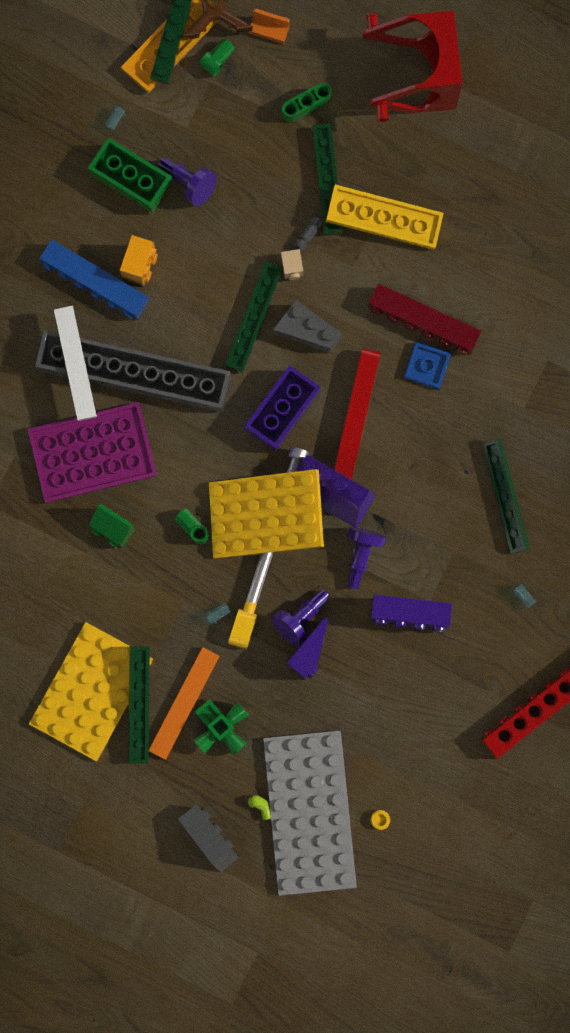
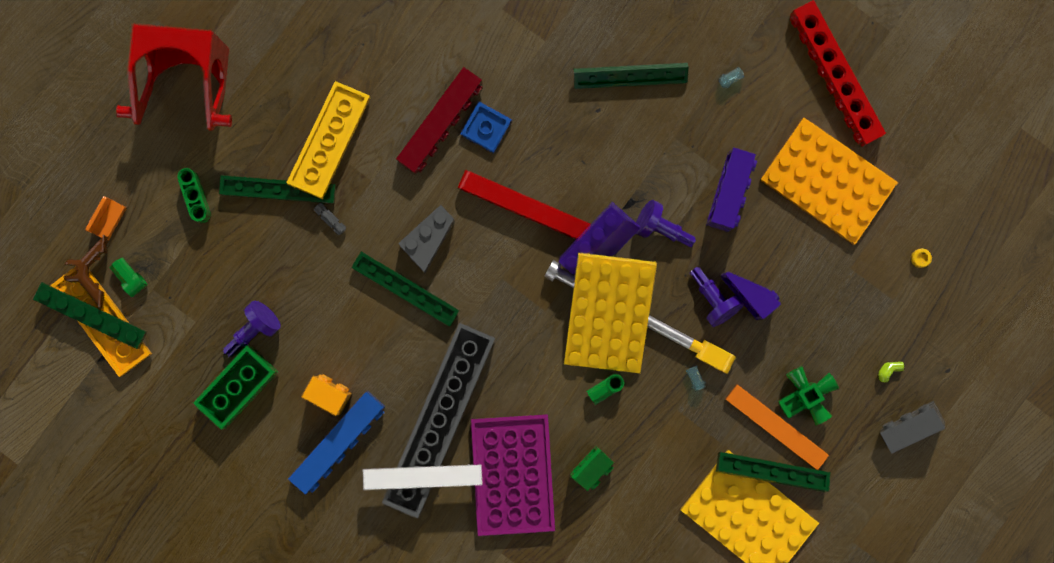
camera: 85 degrees left, 5 degrees up
(115, 117) = (171, 392): clear light blue pin -> none
(282, 408) = (504, 277): dark purple brick -> none
(292, 264) = (359, 241): tan brick -> none
(309, 813) = (903, 324): light grey plate -> none
(440, 712) = (828, 181): none -> light orange plate

